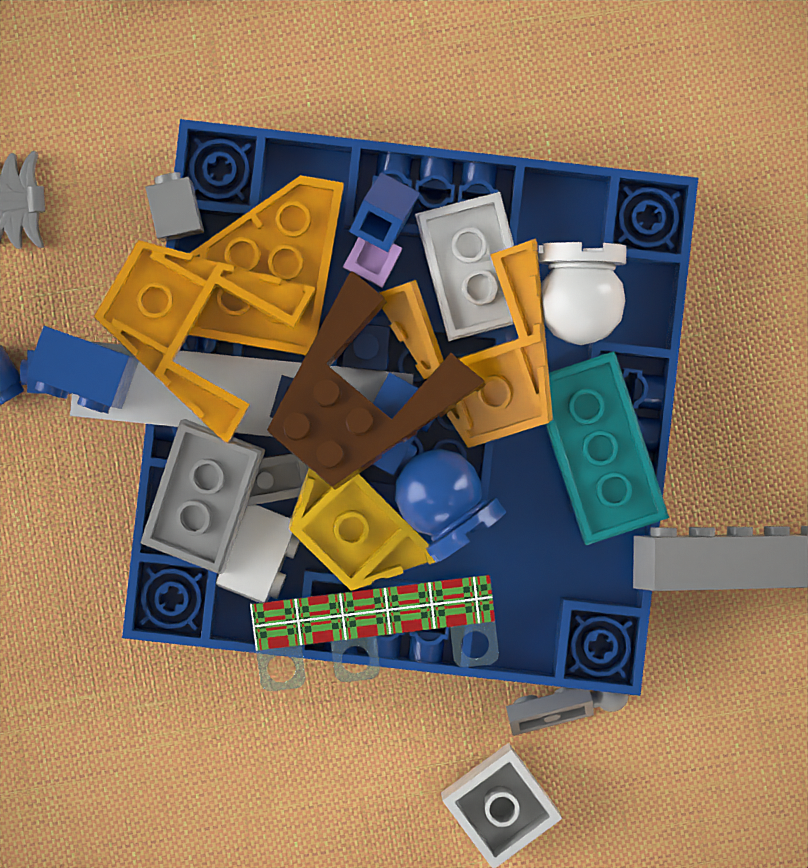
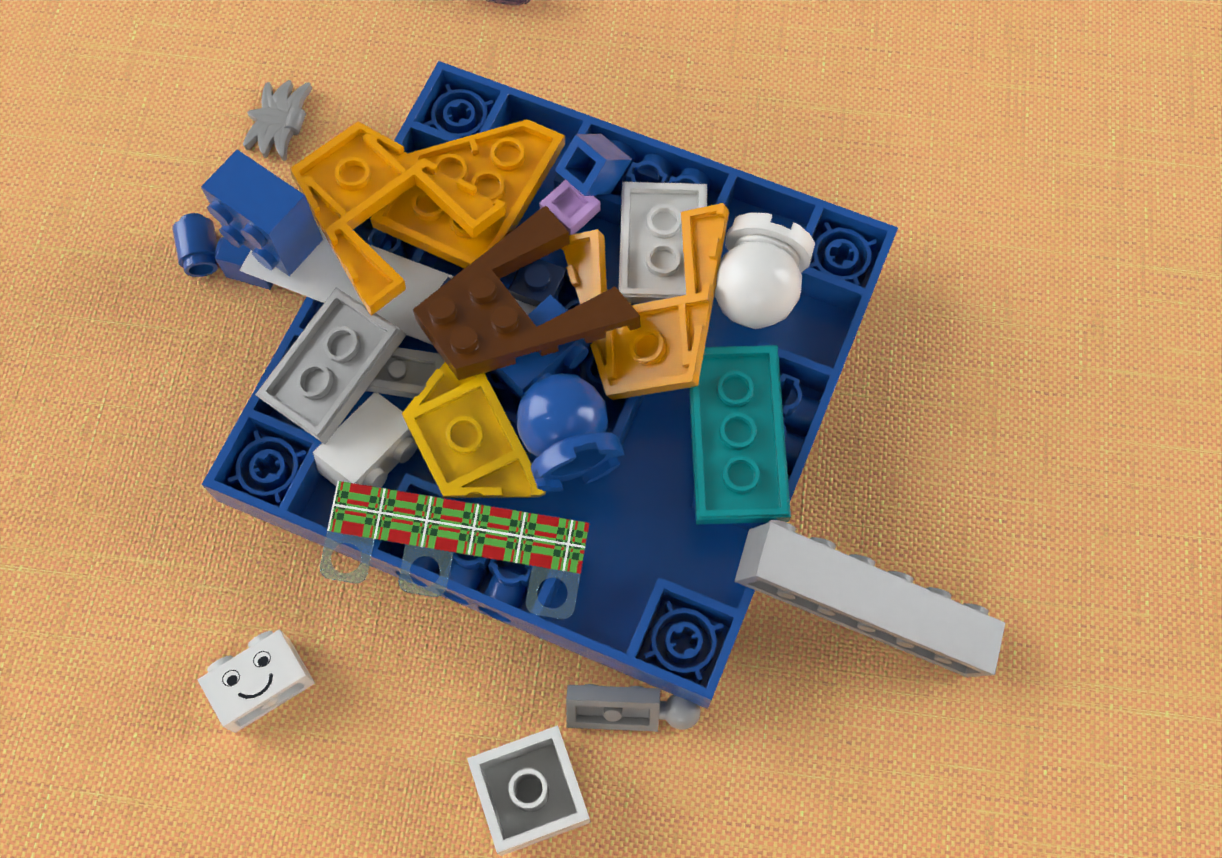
camera: 15 degrees right, 20 degrees down
(174, 207) = (404, 115): light grey brick -> none
(226, 781) = (255, 680): none -> white brick

